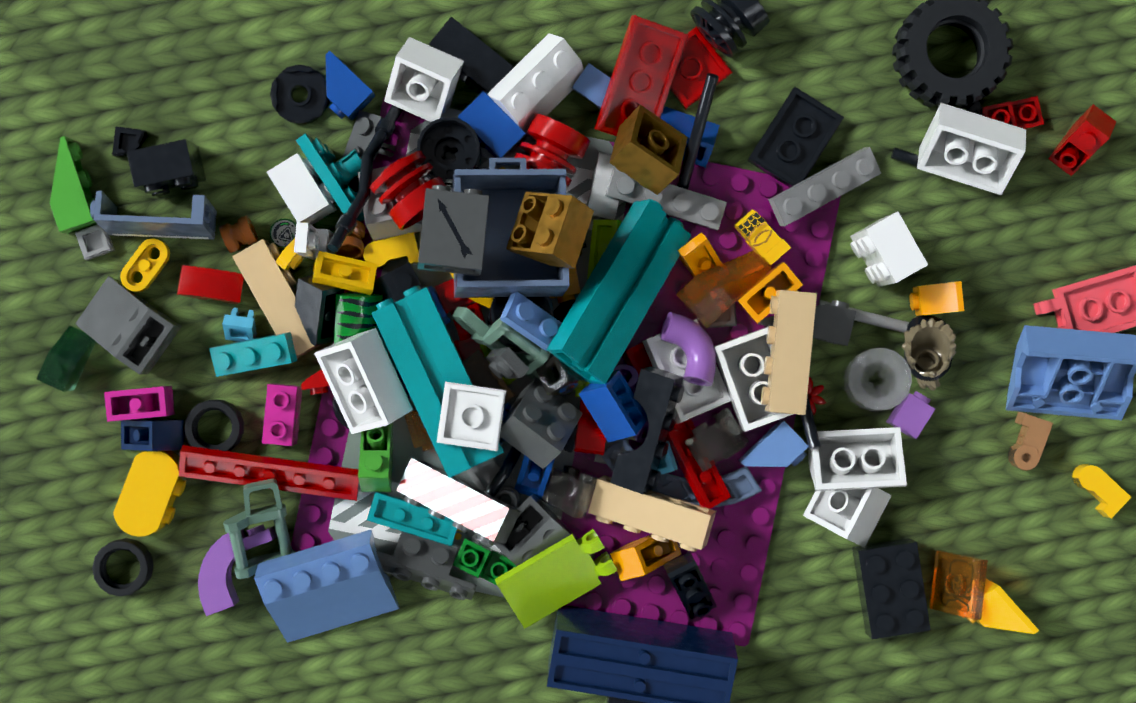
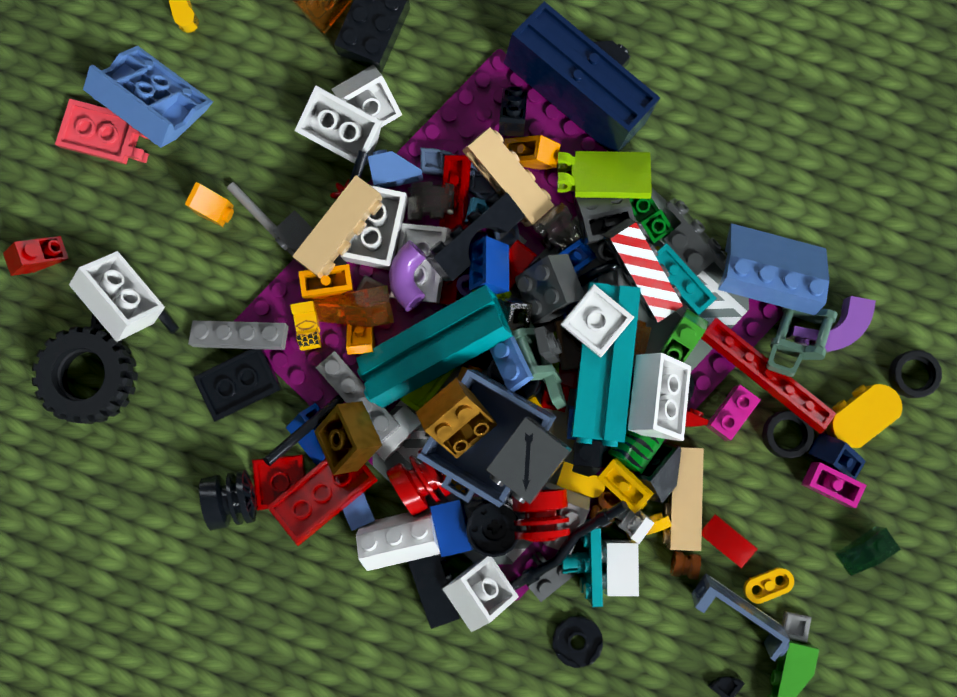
camera: 145 degrees left, 5 degrees down
(127, 326) = (808, 547): dark grey slope -> none
(166, 167) = (710, 648): black brick -> none
(239, 328) = (725, 495): medium azure tile -> none
(253, 354) = (727, 469): teal plate -> none
(283, 232) = (651, 546): tile -> none
(345, 89) = (542, 624): blue slope -> none
(446, 295) = (559, 425): red plate -> none
(888, 250) = (222, 259): white brick -> none
(889, 367) = (290, 160): clear wheel -> none
(911, 414) = (281, 137): medium lavender brick -> none
(929, 349) = (239, 173): dark tan hair -> none
(1020, 113) = (68, 302): red slope -> none
(1030, 441) = (210, 68): medium nougat leg -> none

